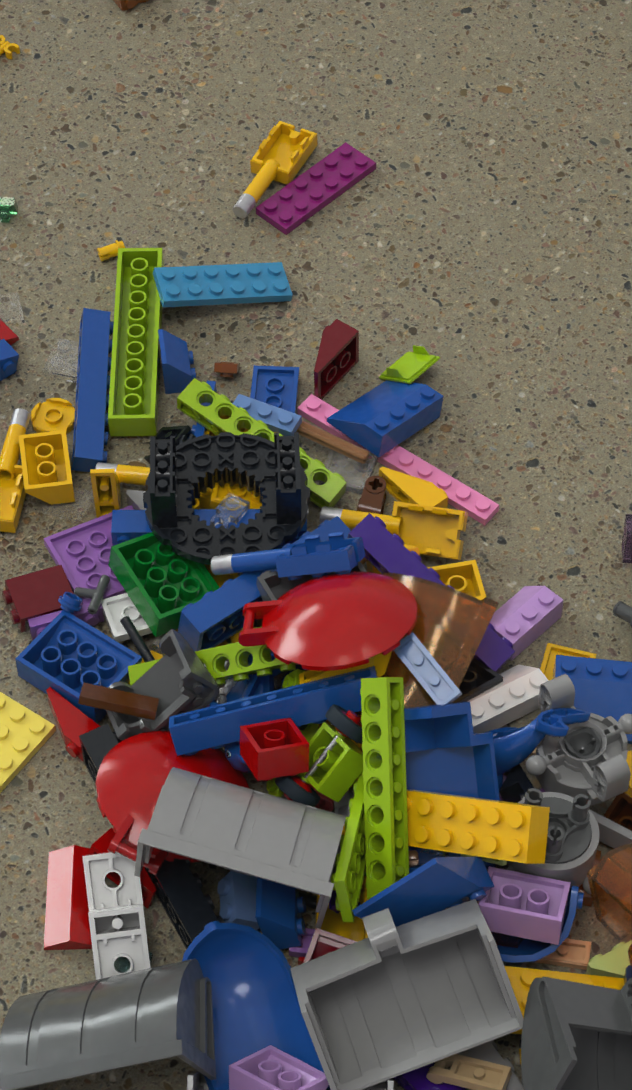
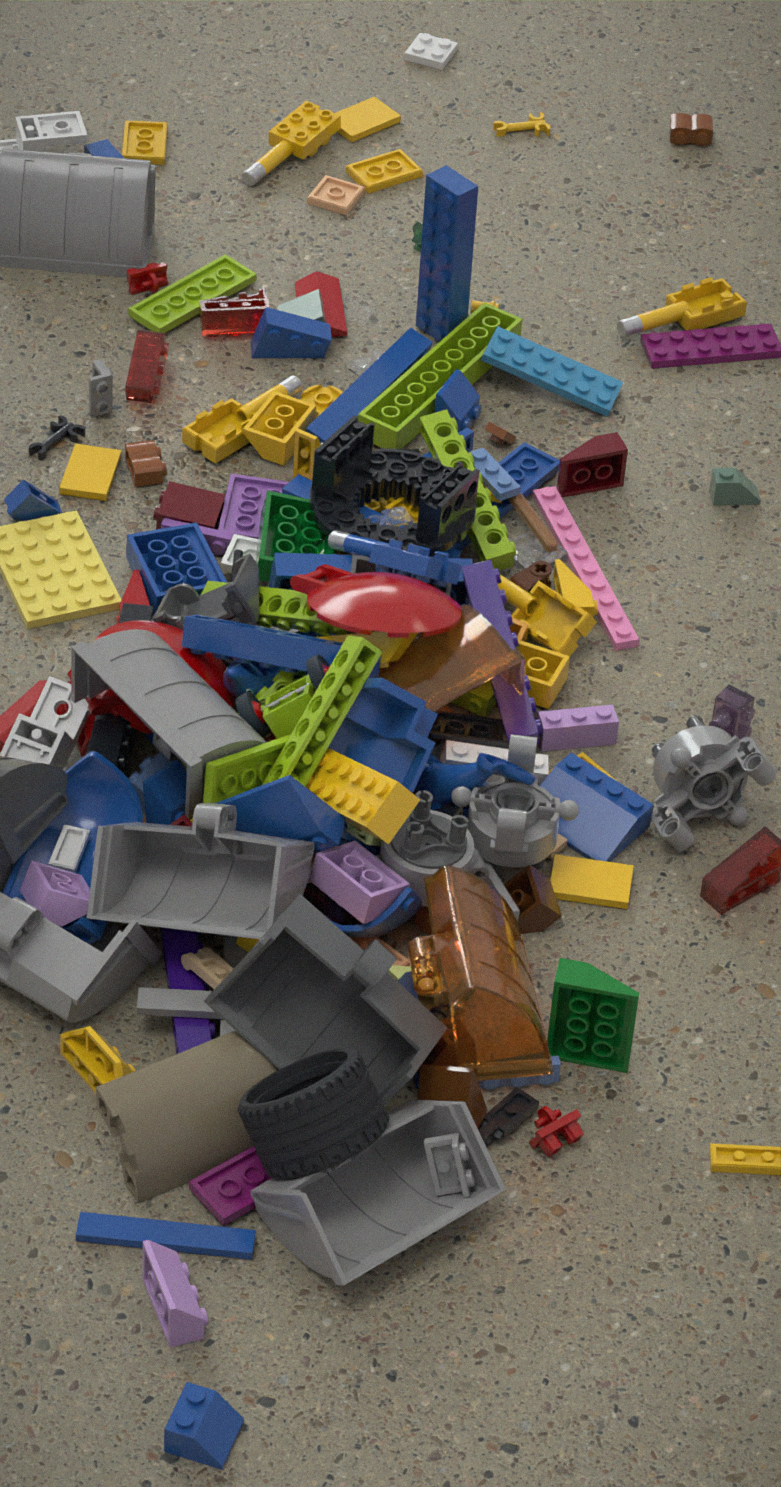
camera: 30 degrees right, 10 degrees down
(70, 602) = (205, 519): blue plate -> none
(81, 226) = (446, 252): none -> blue brick
(96, 595) = (231, 527): dark grey piece -> none
(118, 701) = (173, 593): reddish brown tile -> none
(235, 1024) = (69, 848): none -> white tile
(274, 749) = (251, 668): red brick -> none
(388, 415) = (604, 530): blue slope -> none
(410, 366) = (659, 505): lime piece -> none
(427, 670) = (423, 672): medium blue plate -> none
(447, 317) = (732, 487): none -> sand green slope

